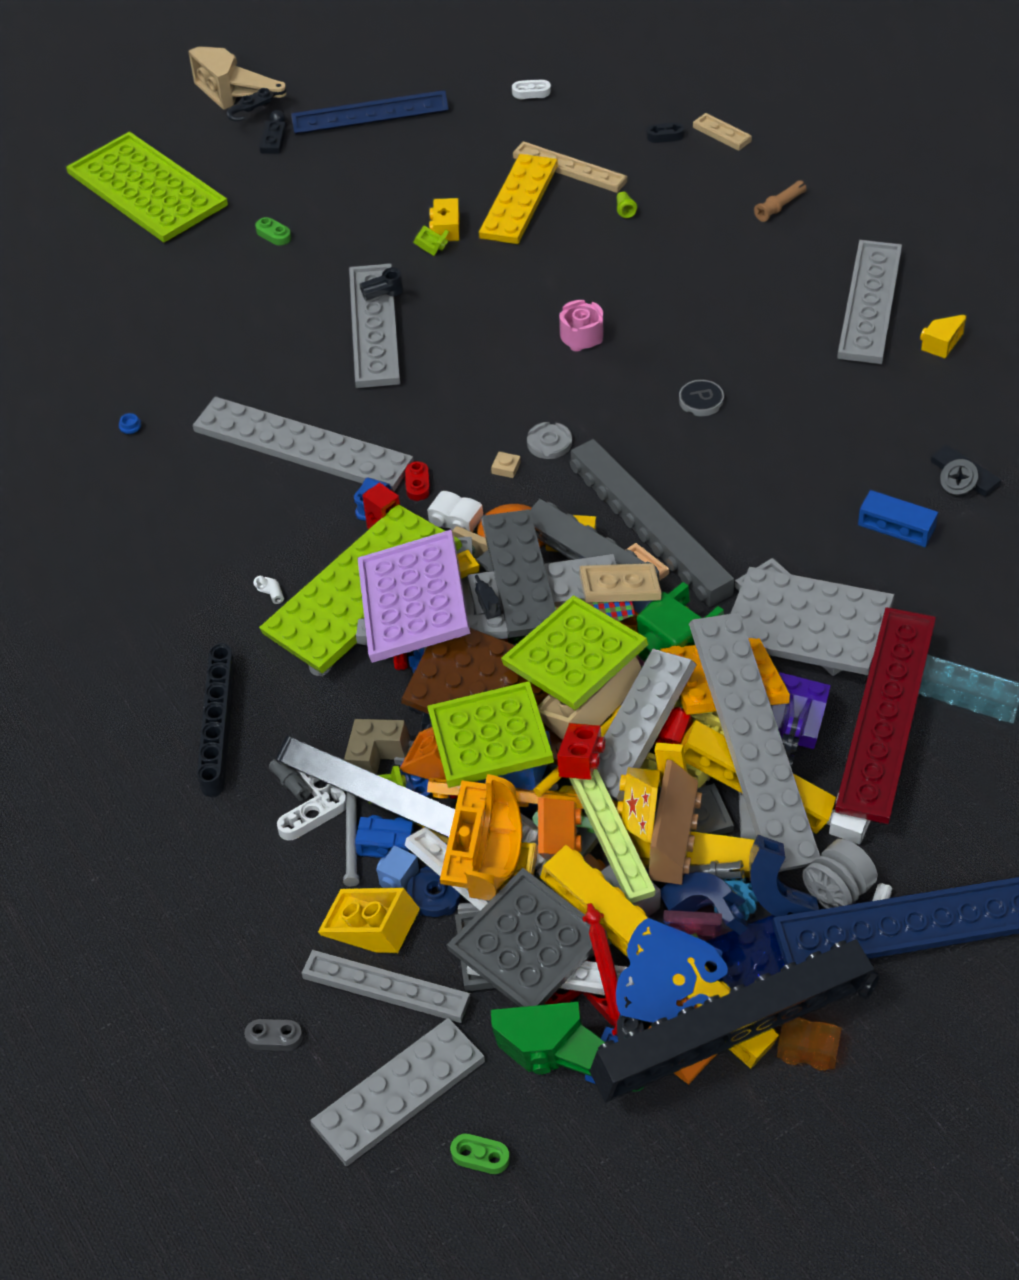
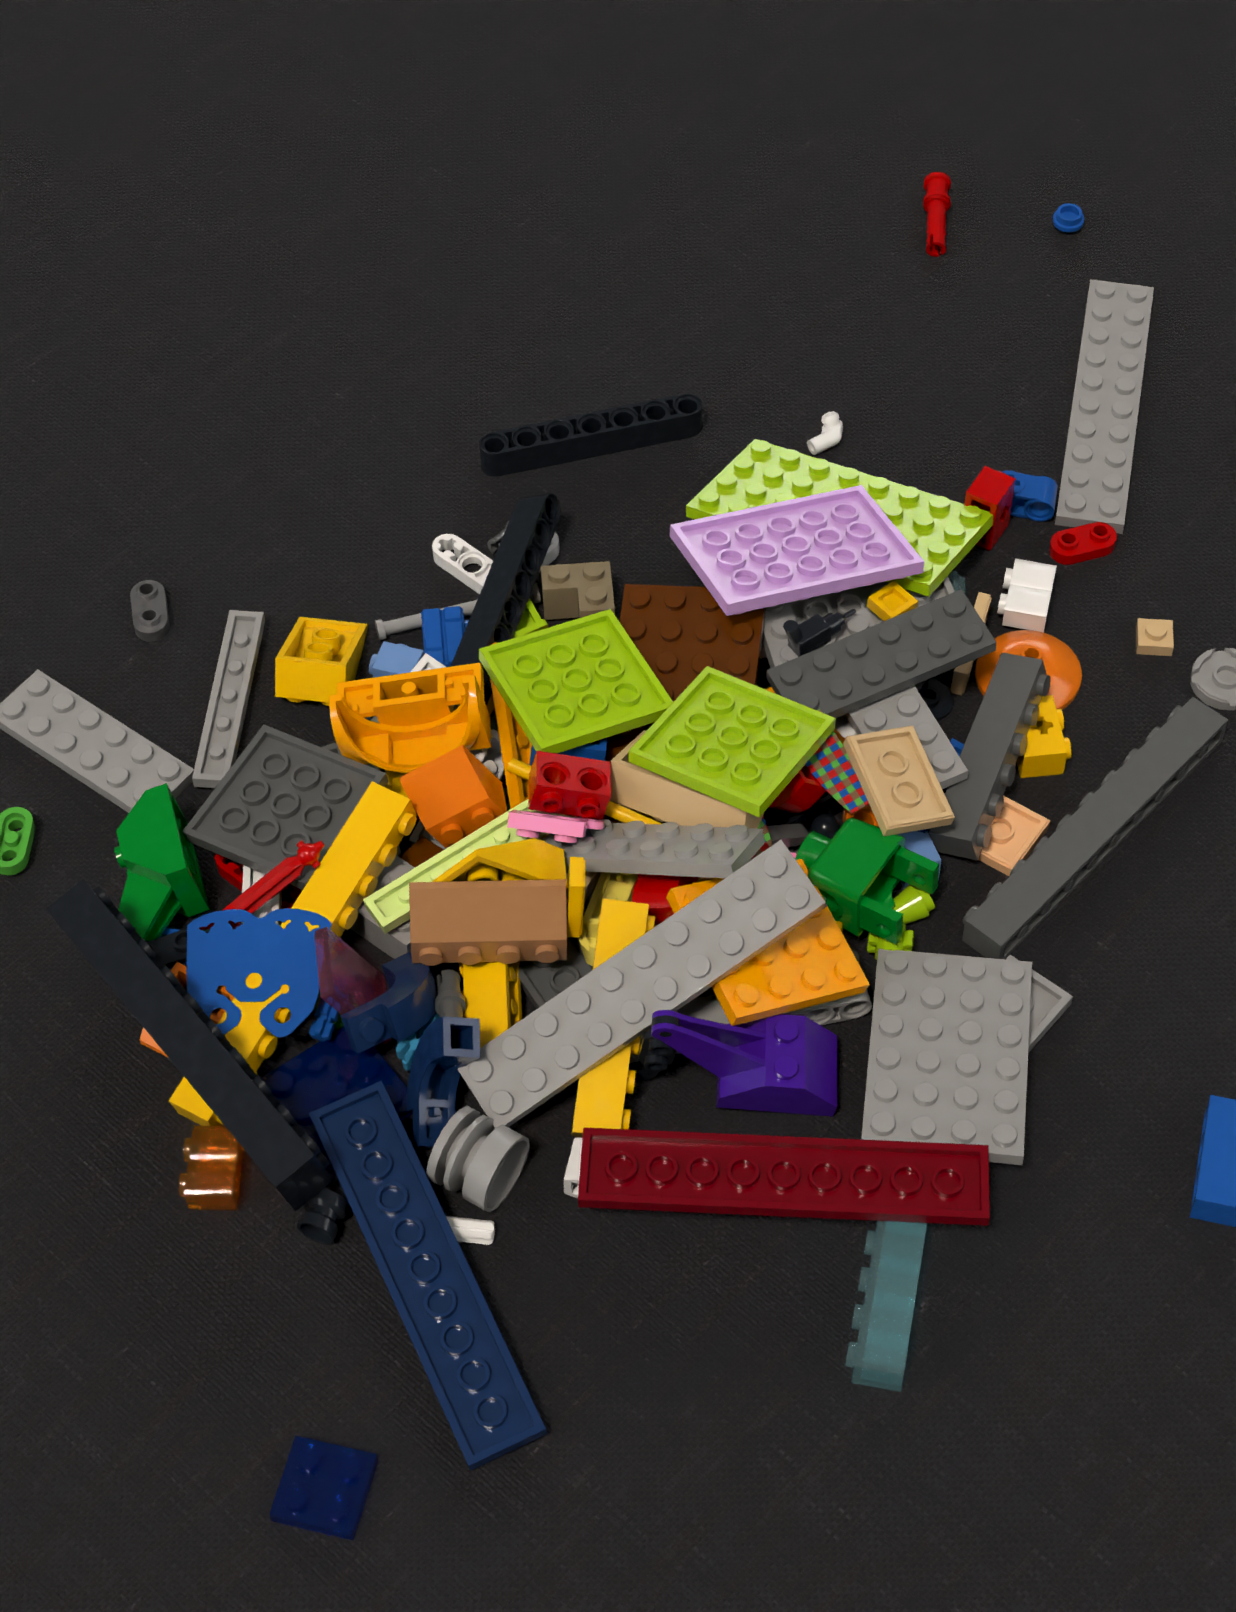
camera: 75 degrees right, 5 degrees up
(81, 486) = (936, 204): none -> red pin
(611, 763) = (565, 828): none -> bright pink hinge

